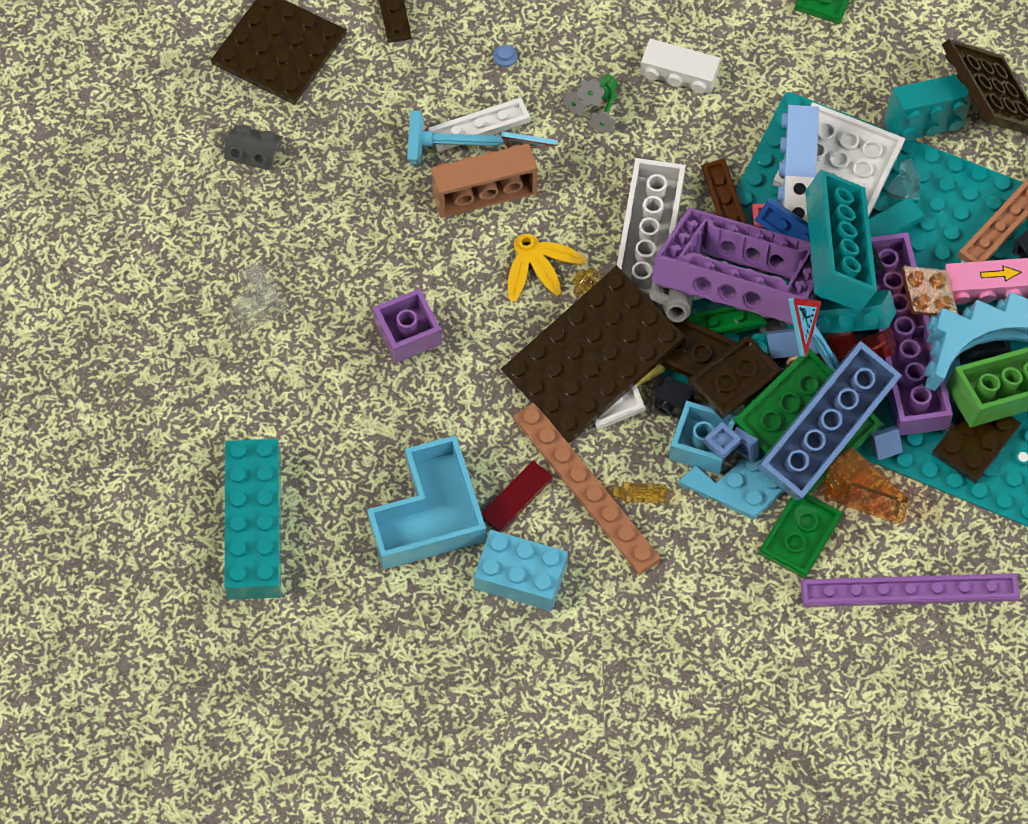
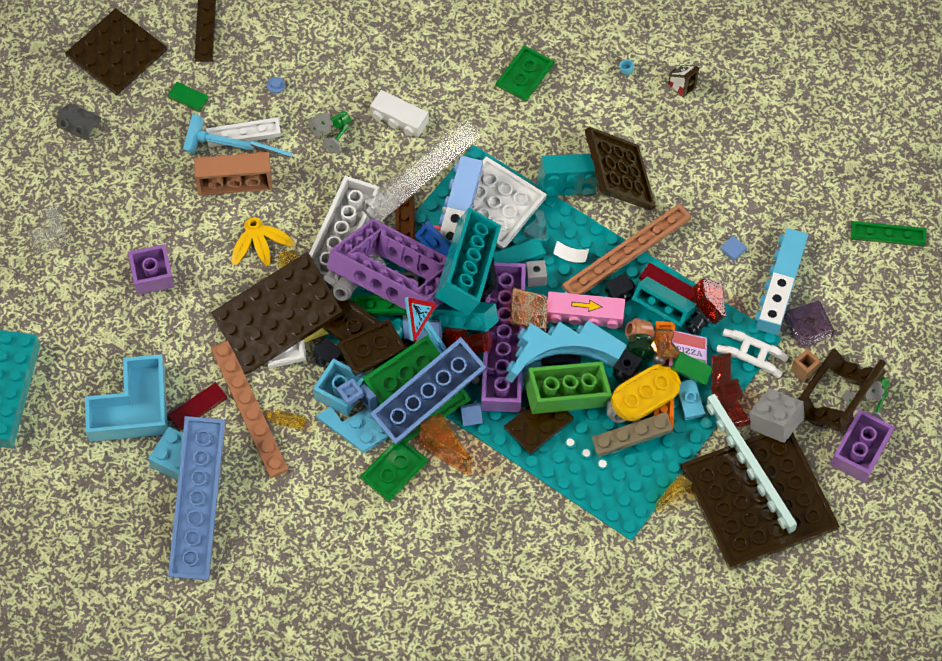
camera: 10 degrees right, 0 degrees up
(391, 90) = (188, 97): none -> green tile
(556, 618) = (196, 498): none -> medium blue plate
(735, 136) = (421, 172): none -> clear brick
(909, 590) = (461, 524): medium lavender tile -> none
(926, 249) = (536, 278): none -> light grey piece
(957, 212) = (570, 254): none -> white sticker

